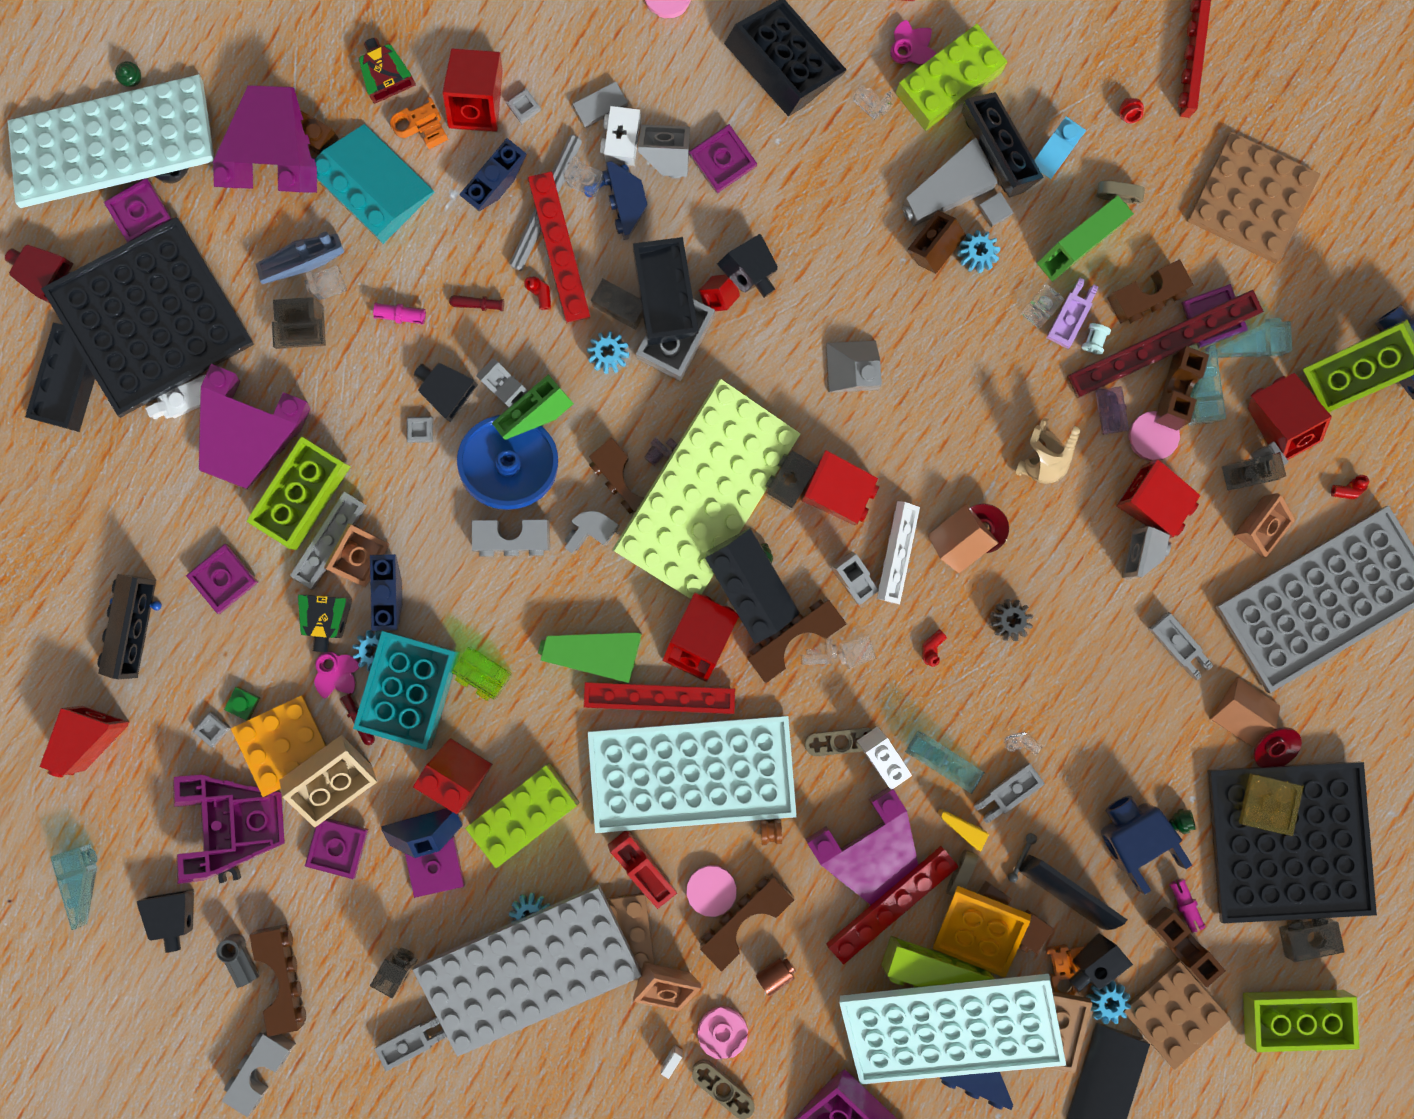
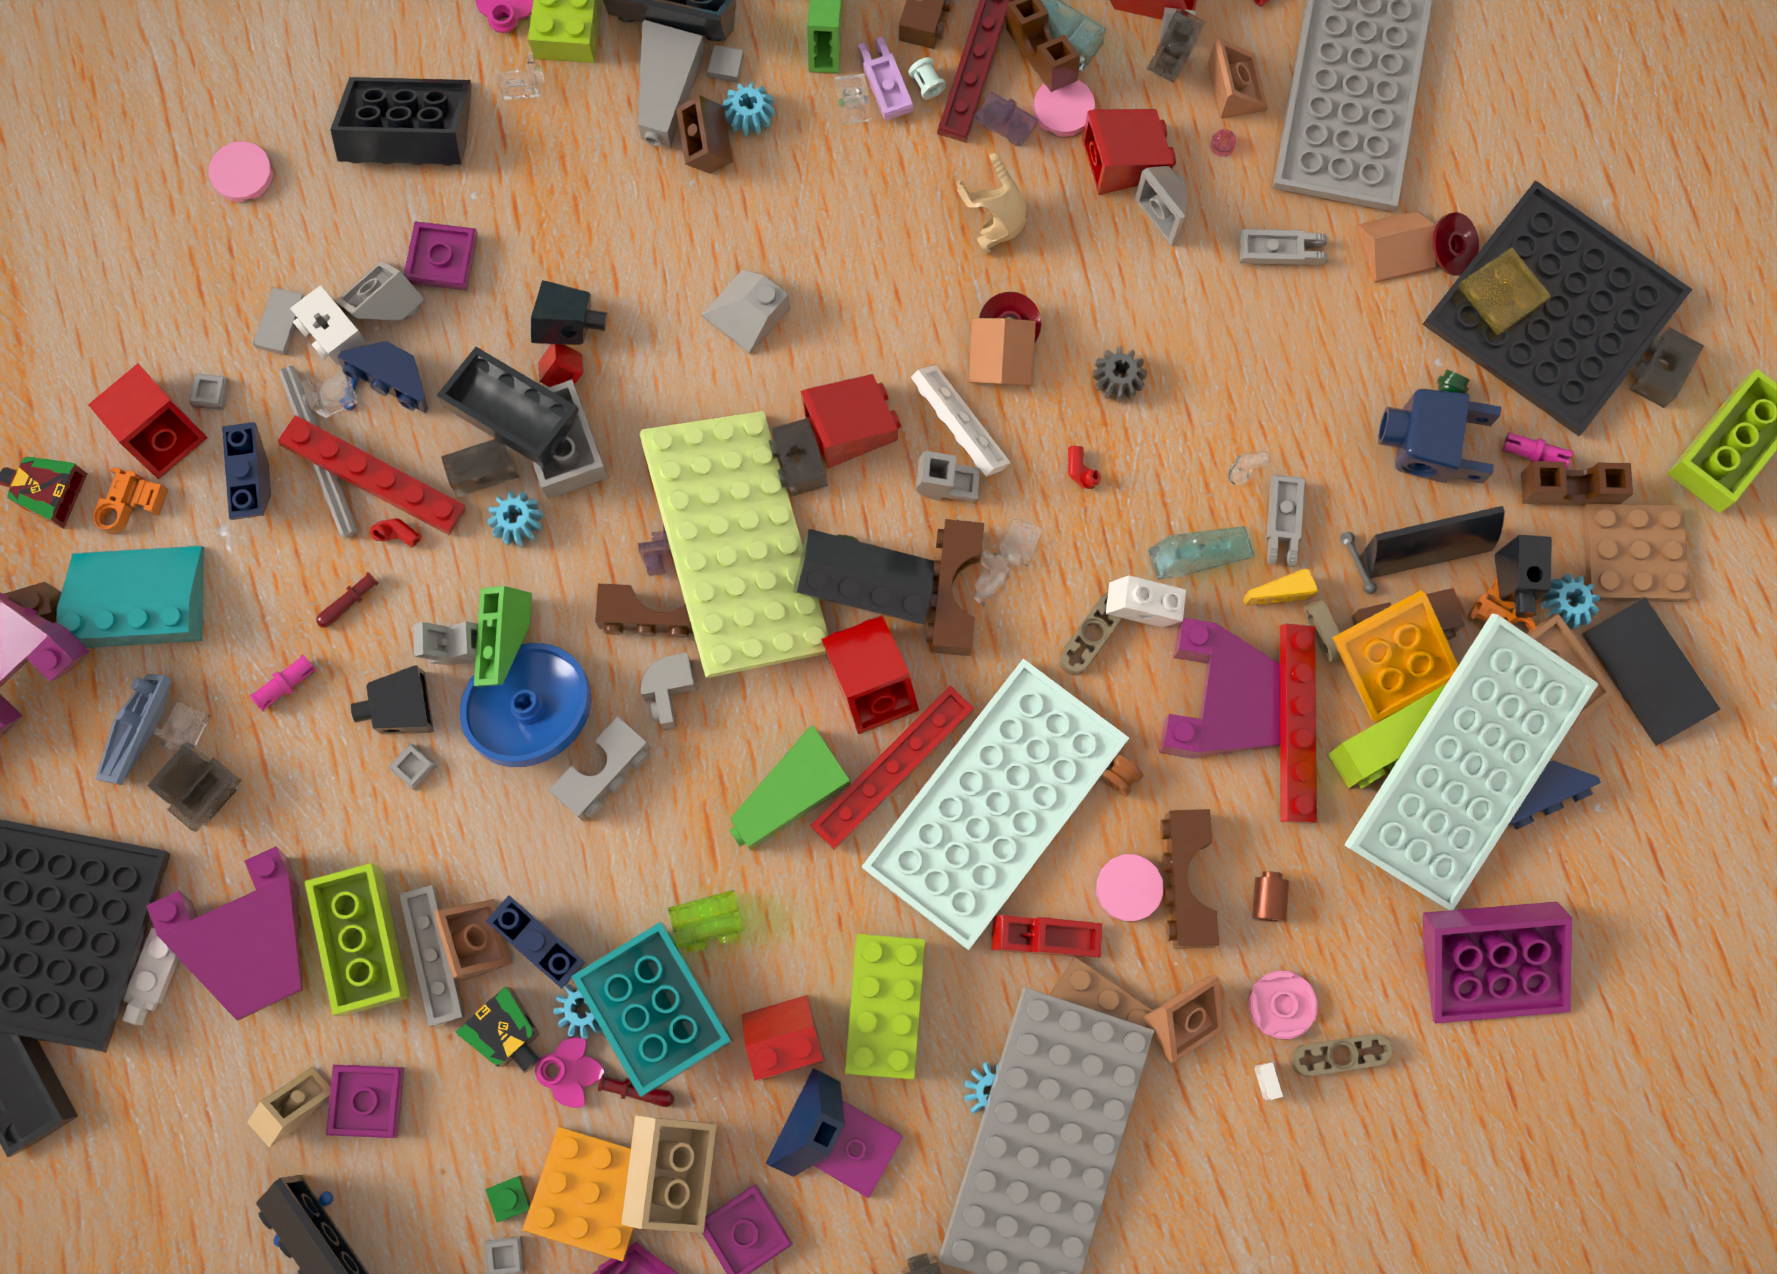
camera: 45 degrees left, 10 degrees down
(183, 541) = (289, 1106): none -> tan slope
(1217, 546) = (1230, 145): none -> clear pink hinge

